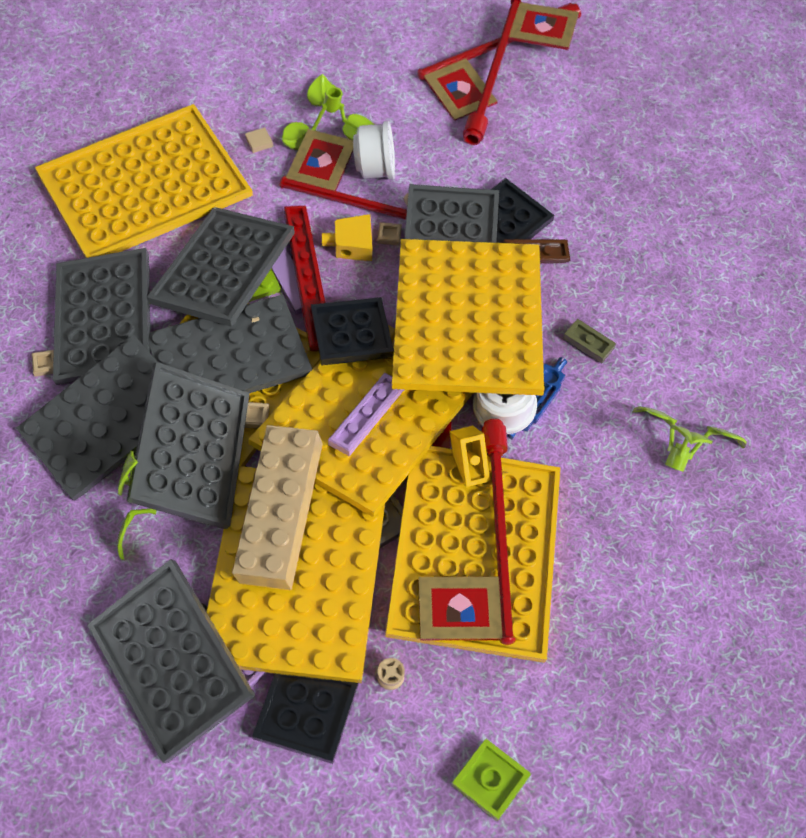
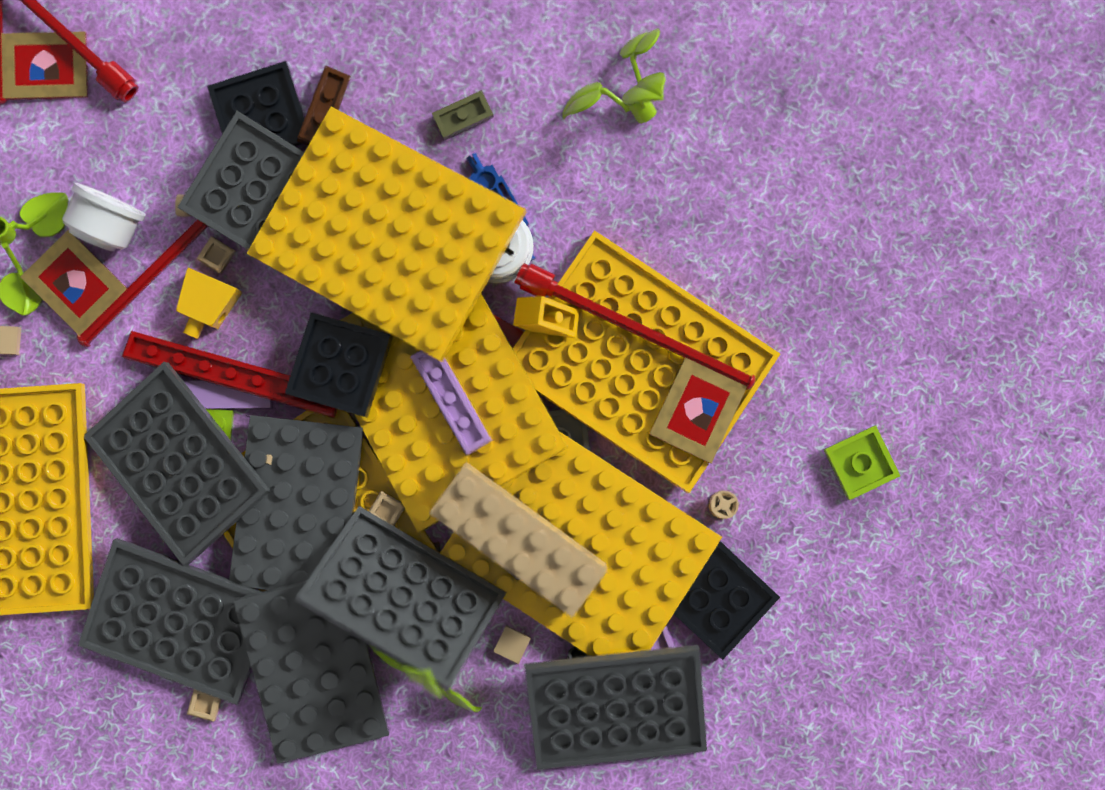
camera: 60 degrees left, 25 degrees up
(189, 558) = (512, 644): none -> tan tile

